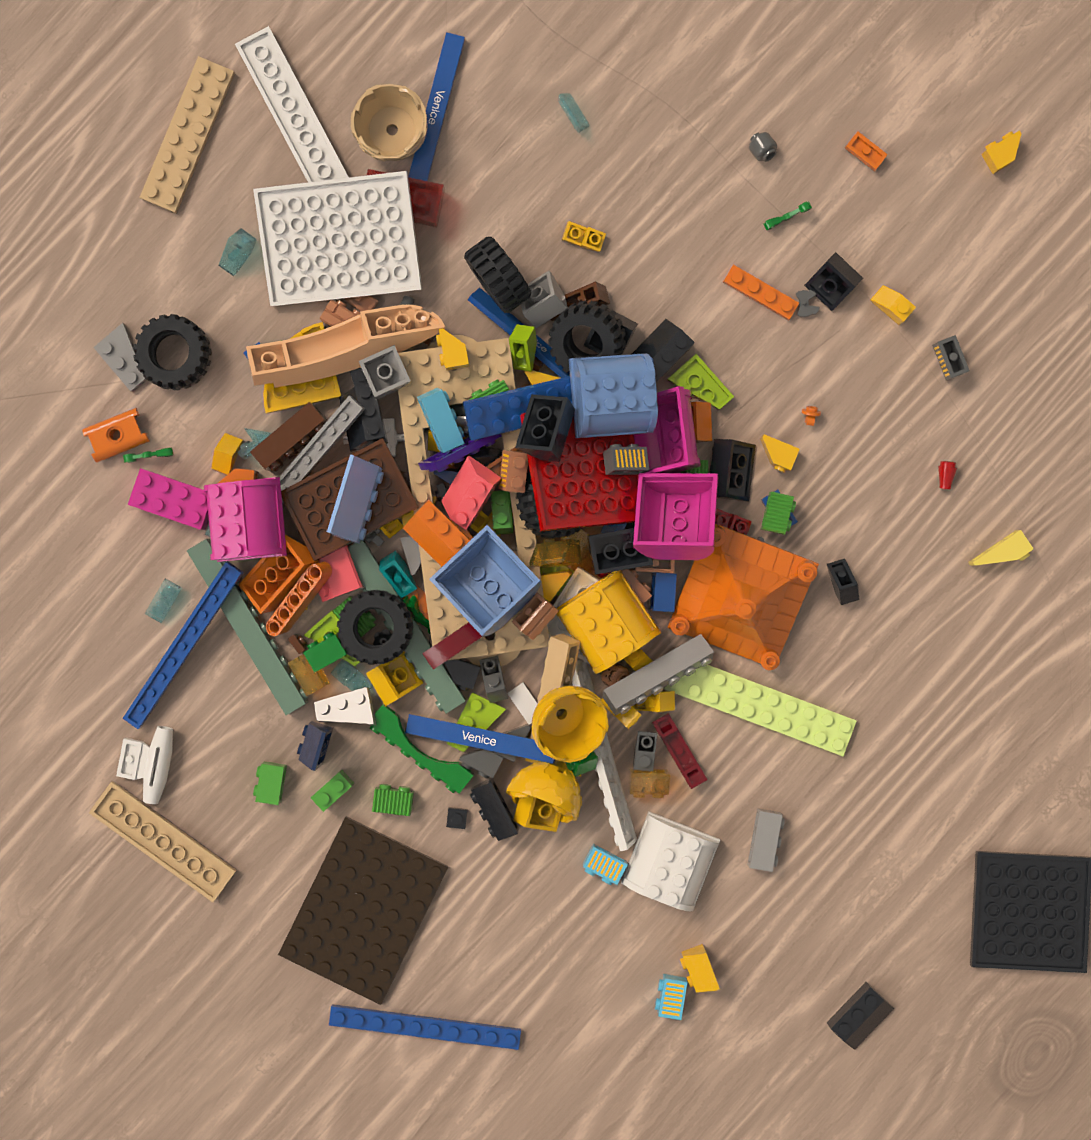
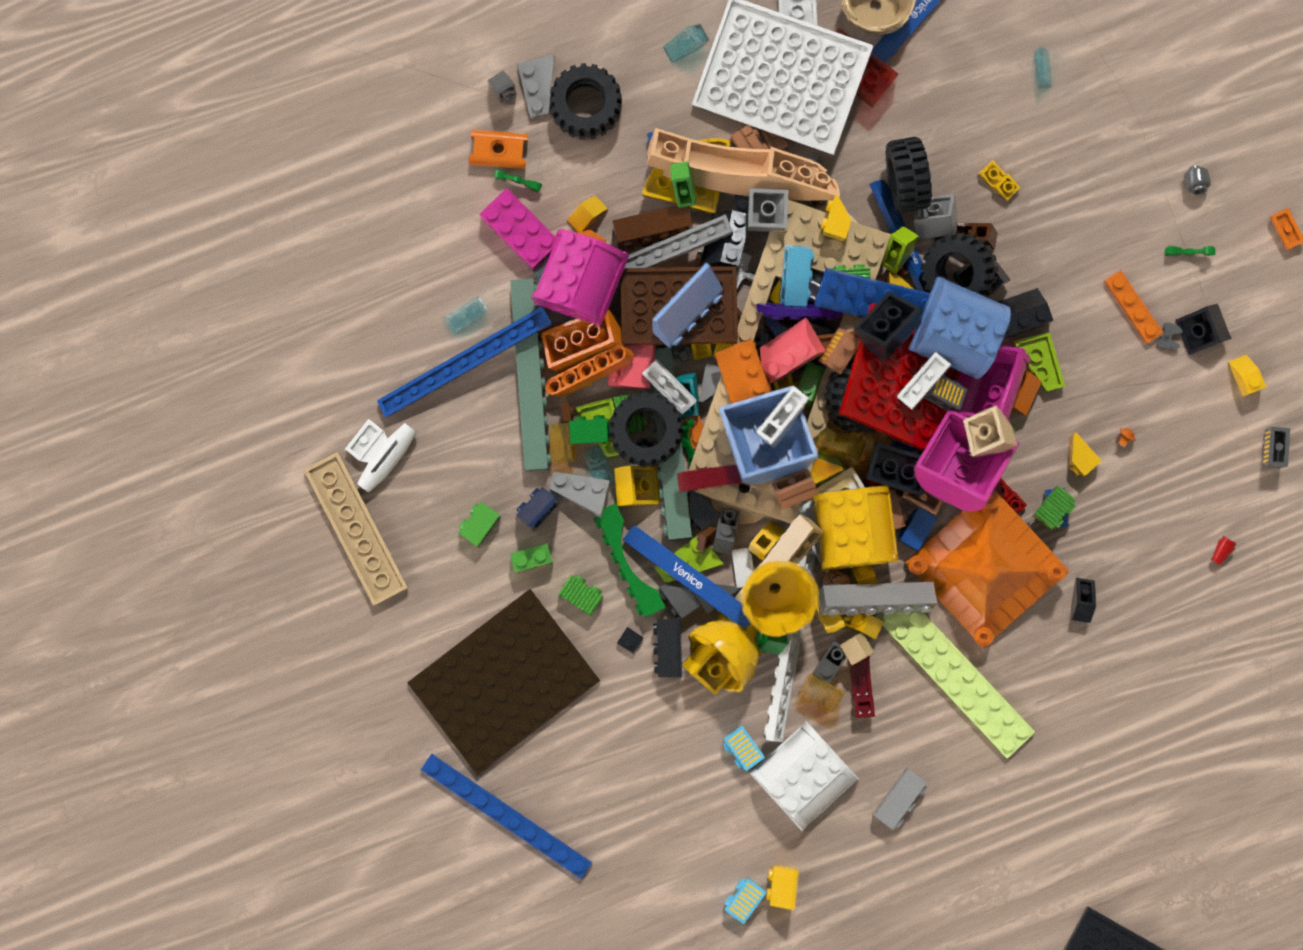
camera: 20 degrees right, 5 degrees down
(90, 376) = (502, 87): none -> dark grey slope
(257, 437) = (622, 212): clear light blue slope -> none
(296, 387) = (683, 184): none -> bright green brick
(377, 577) = (669, 386): none -> white plate
(478, 696) = (706, 538): none -> reddish brown plate
(491, 560) = (782, 417): none -> white slope
(533, 669) = (766, 540): none -> yellow slope
(603, 461) = (924, 380): none -> white plate
(662, 728) = (857, 648): none -> tan panel
(686, 480) = (989, 433): none -> tan slope
(734, 466) = (1035, 450): black slope -> none
(1010, 548) = (1247, 645): light yellow slope -> none

